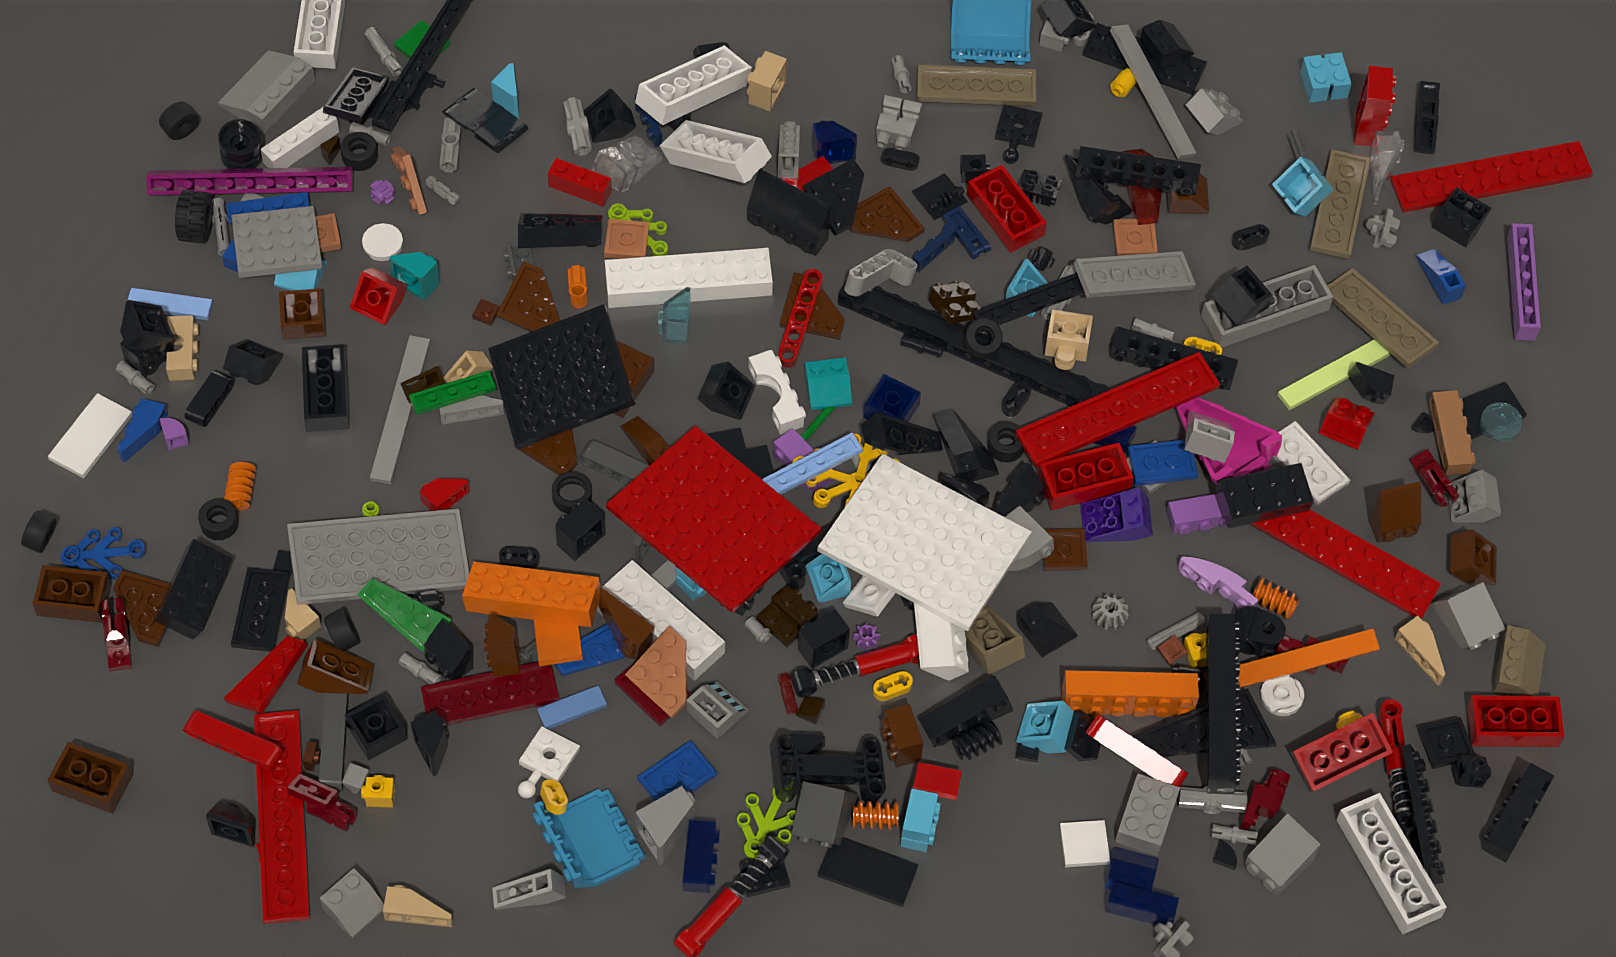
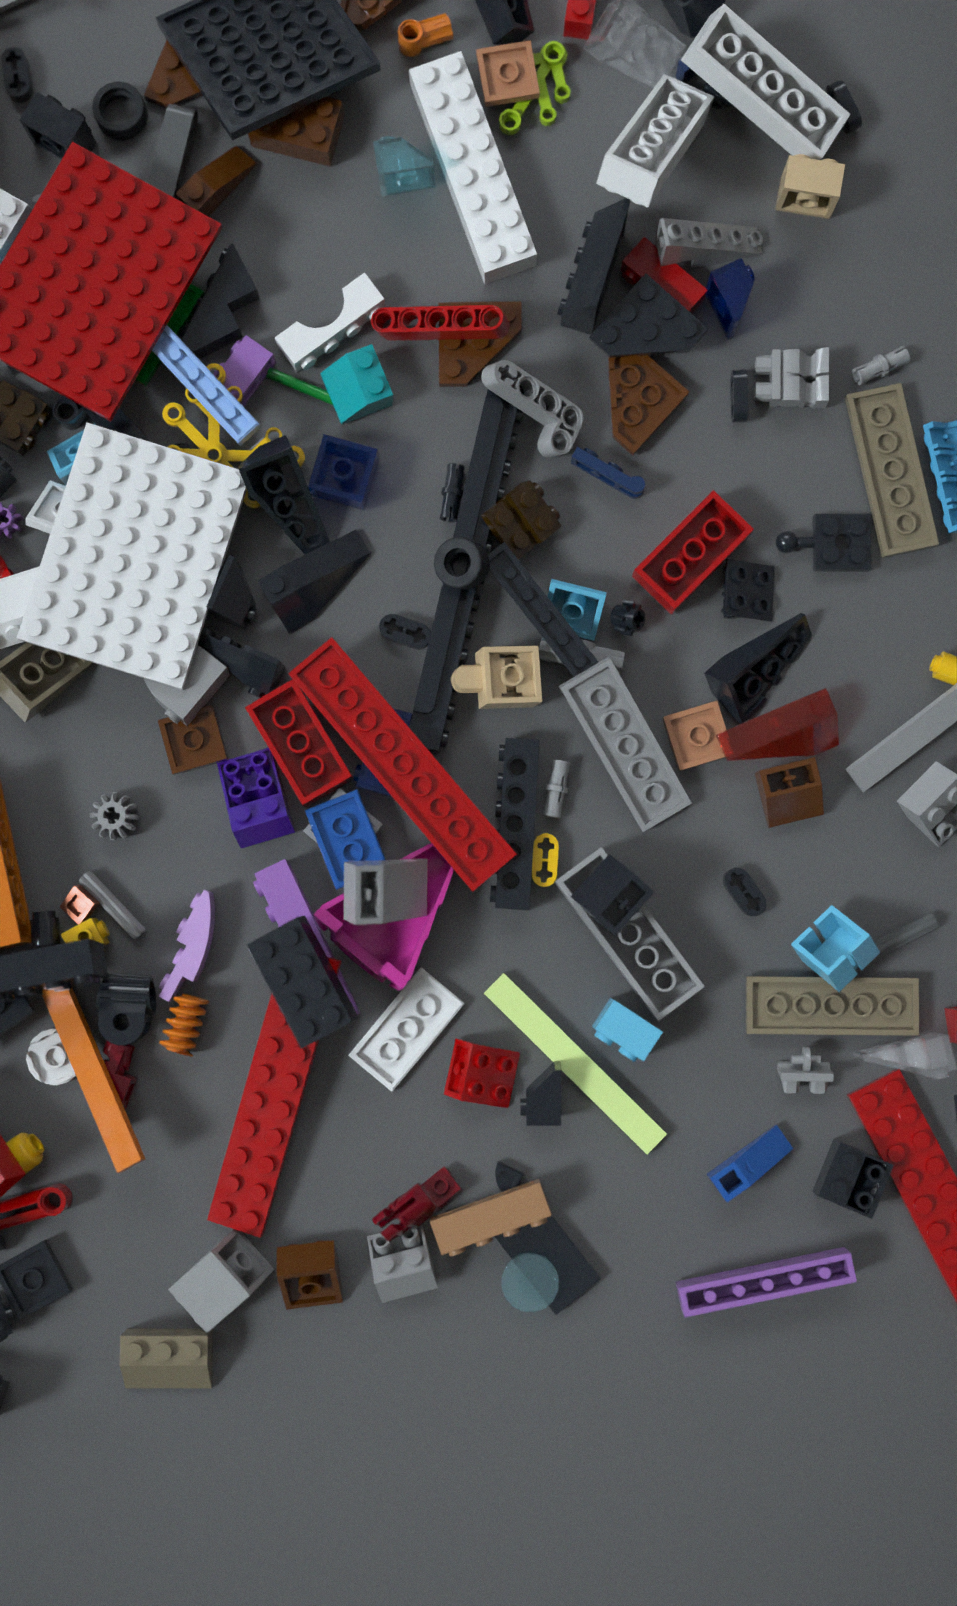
camera: 85 degrees right, 25 degrees up
(726, 391) = (314, 261): black slope -> none
(940, 196) = (695, 462): black hinge -> none
(967, 166) = (751, 484): black brick -> none
(967, 232) = (646, 509): dark blue plate -> none
(1003, 452) = (332, 614): black tyre -> none
(1045, 628) = (75, 740): black slope -> none
(1104, 166) = (788, 640): black brick -> none
(1334, 321) = (627, 1030): none -> medium azure piece
(1381, 318) = (652, 1092): dark tan plate -> none
(1397, 512) = (339, 1163): reddish brown slope -> none
(1420, 644) = (165, 1224): tan slope -> none
(1515, 721) = (75, 1366): red brick -> none

